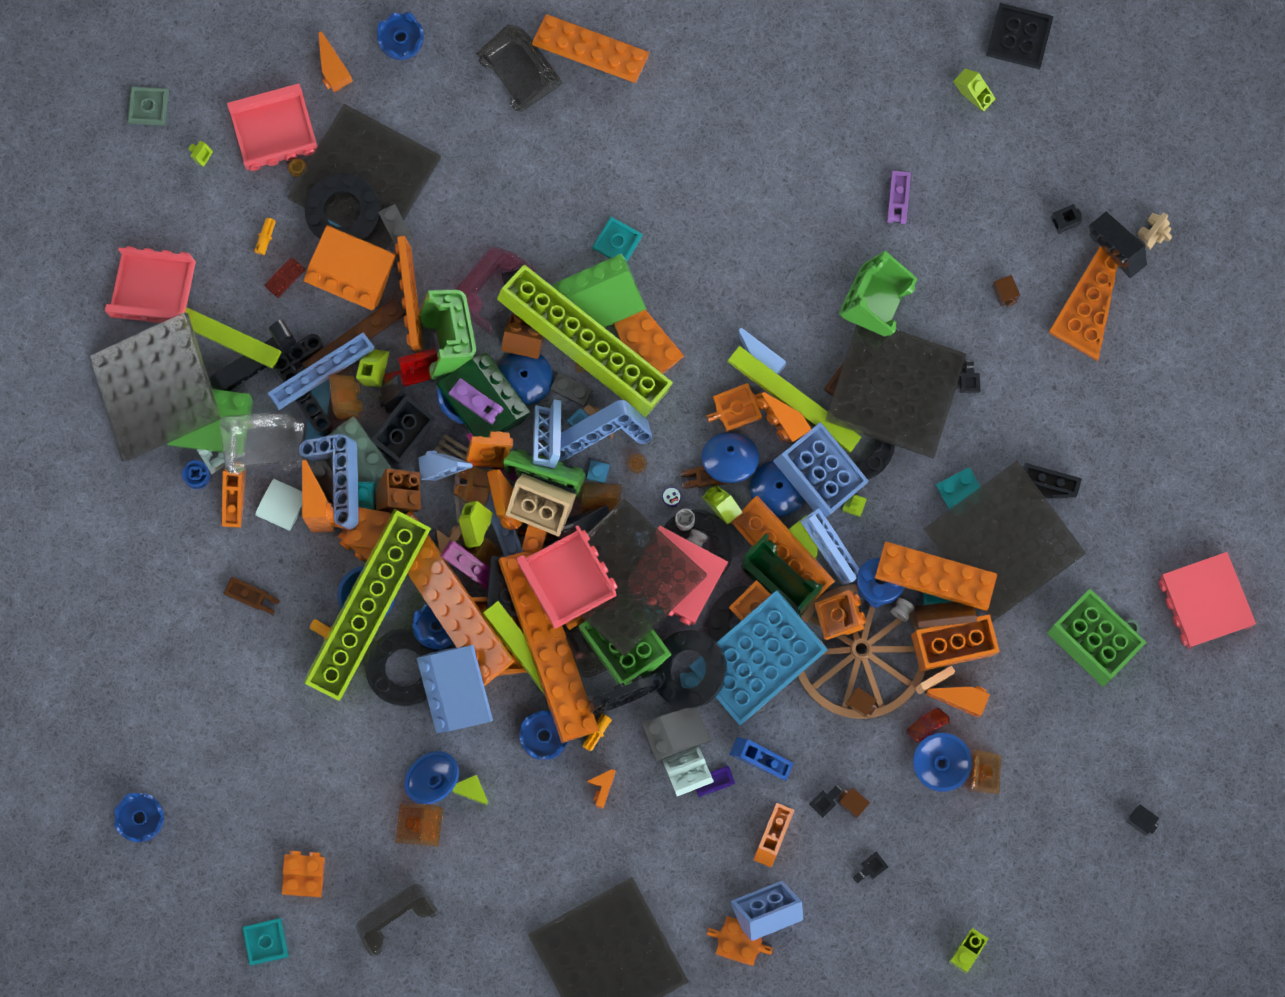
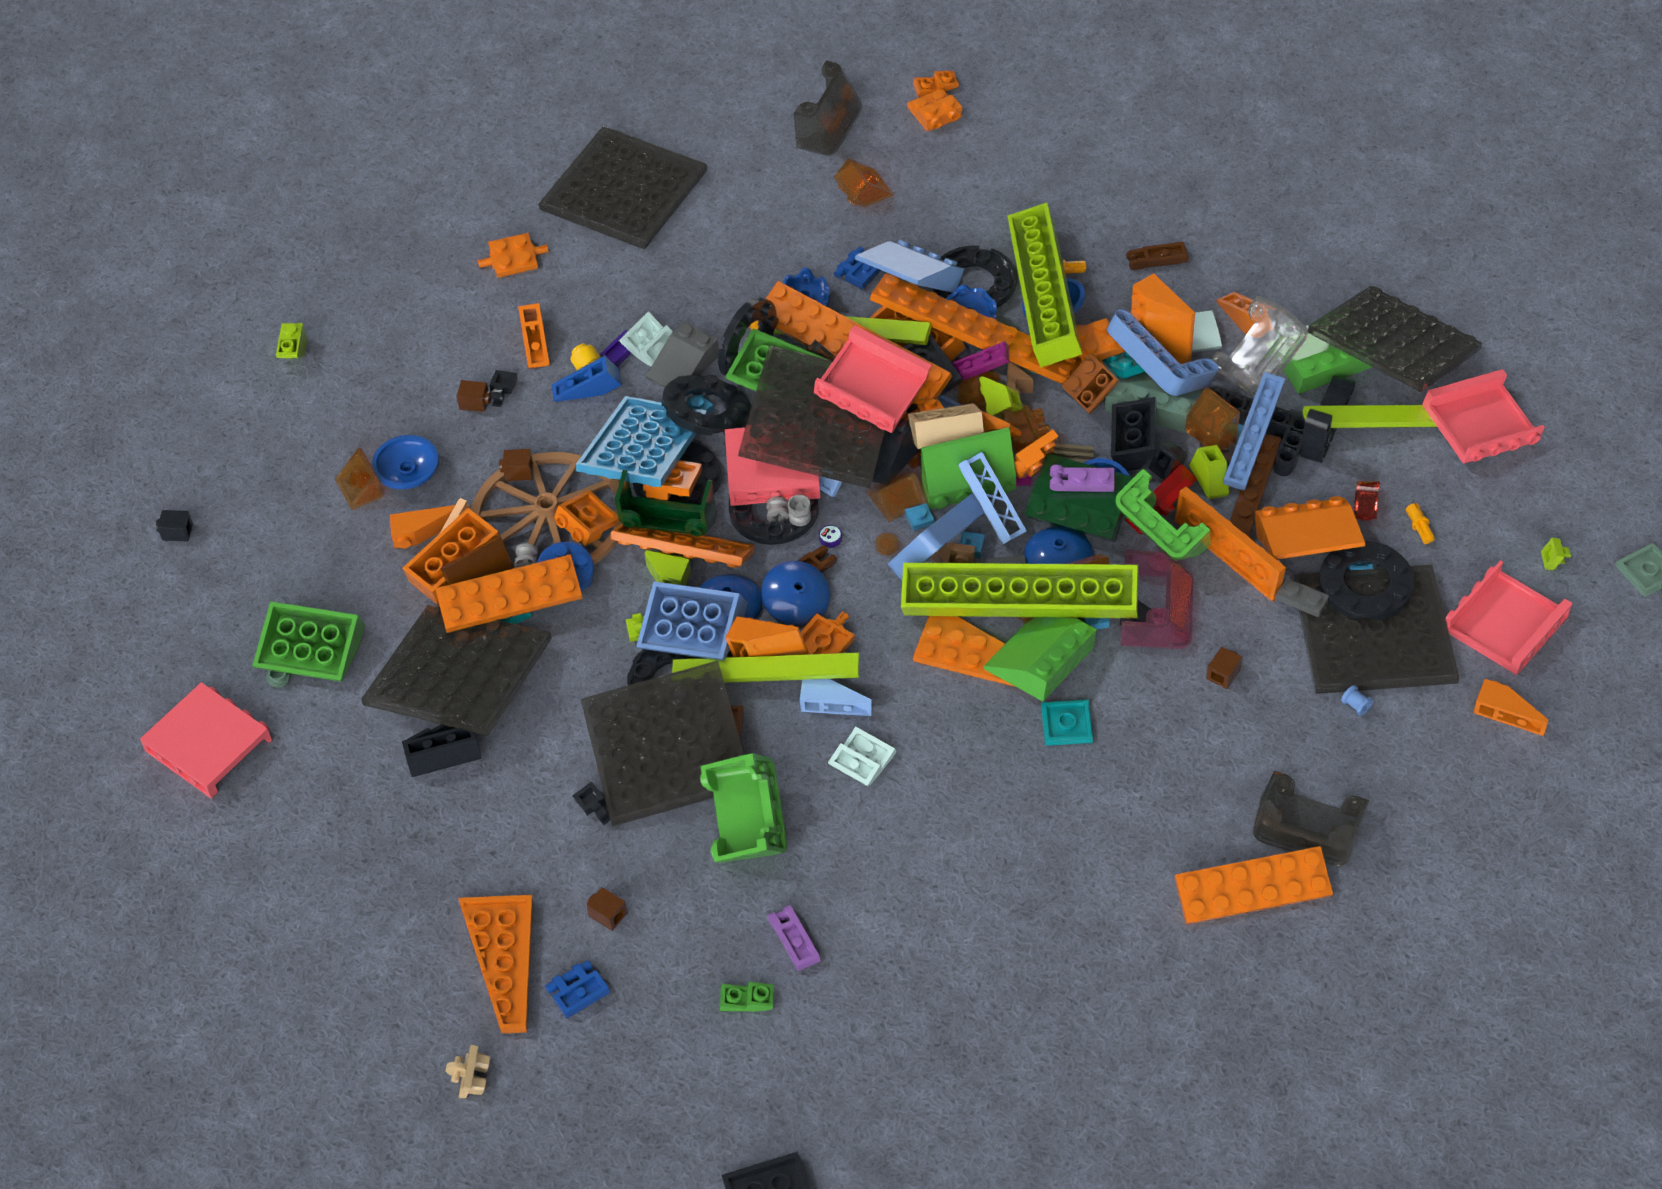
camera: 150 degrees right, 25 degrees down
(127, 810) = (1110, 62): blue plate -> none
(196, 474) = (1297, 306): blue wheel -> none
(265, 941) = (928, 57): teal tile -> none
(281, 905) = (941, 80): none -> orange slope
(296, 167) = (1450, 599): pearl gold plate -> none
(400, 24) = (1463, 761): blue plate -> none
(421, 131) = (1357, 700): none -> medium blue bush
(431, 777) = (879, 211): blue dish -> none
(438, 466) = (1070, 424): light blue slope -> none
(471, 789) = (837, 228): lime slope -> none
(477, 734) = (858, 275): none -> blue plate
(486, 210) = (1224, 667): none -> reddish brown brick
(604, 782) = (721, 290): orange slope -> none
(722, 504) = (772, 546): lime slope -> none
(748, 782) = (584, 355): none -> yellow head
(767, 910) = (501, 278): medium blue slope -> none
(769, 301) = (862, 756): none -> light aqua slope
(828, 546) = (634, 559): light blue fence -> none
(872, 866) = (425, 361): black plate -> none
(926, 724) = (440, 486): clear red slope -> none
(952, 176) = (746, 998): none -> bright green slope
(957, 487) = (535, 700): teal plate -> none
(974, 89) = (785, 1102): lime slope -> none
(1056, 242) = (579, 994): none -> blue plate
(1068, 212) = (586, 1016): black brick -> none
(1119, 244) = (504, 1014): black wedge -> none

